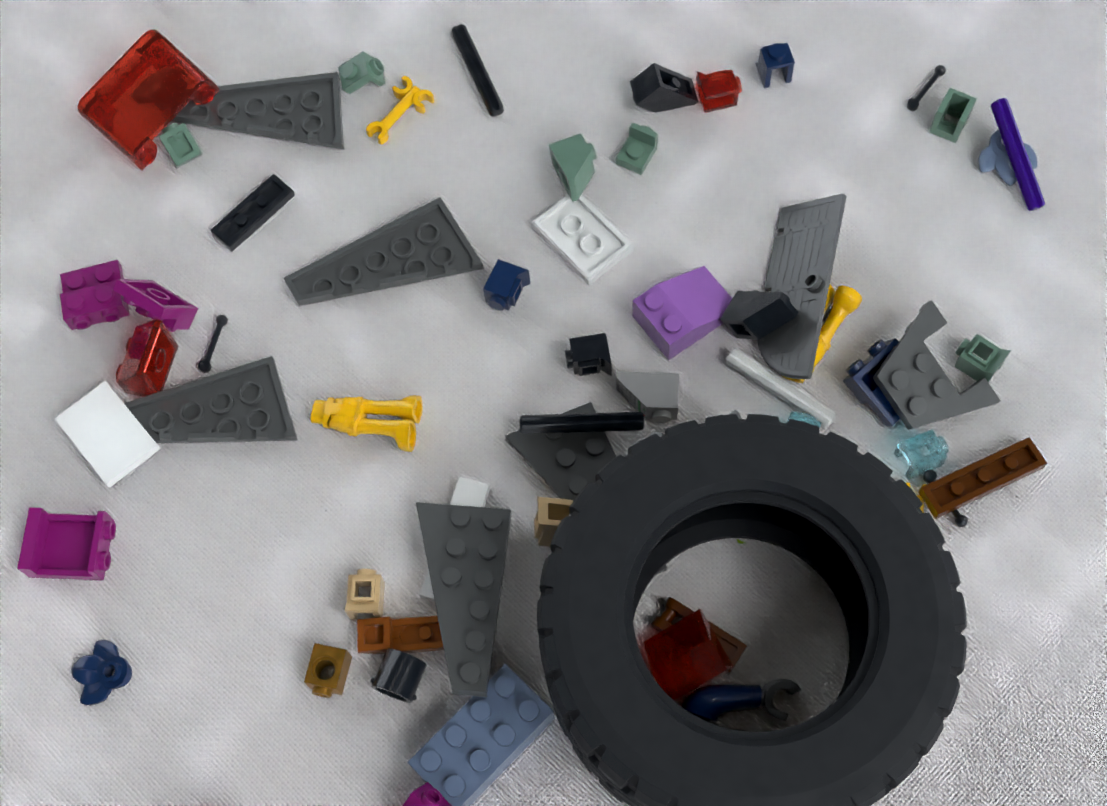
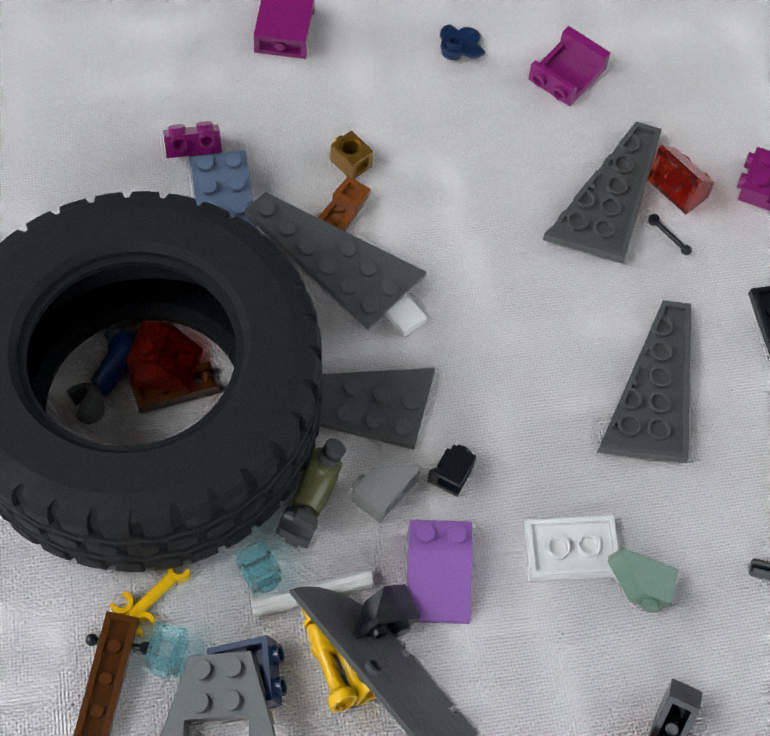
camera: 115 degrees right, 5 degrees down
(107, 434) = (636, 124): white tile -> none
(157, 303) = (725, 201): magenta plate -> none
(350, 417) = (533, 279): yellow piece -> none
(371, 604) = (384, 205): tan window -> none
(399, 675) = (310, 188): black piece -> none
(505, 285) = (566, 451): dark blue window -> none
(548, 518) = (338, 343): tan window -> none
(581, 422) = (398, 418): black axle -> none
(638, 148) = (626, 652): sand green bracket -> none

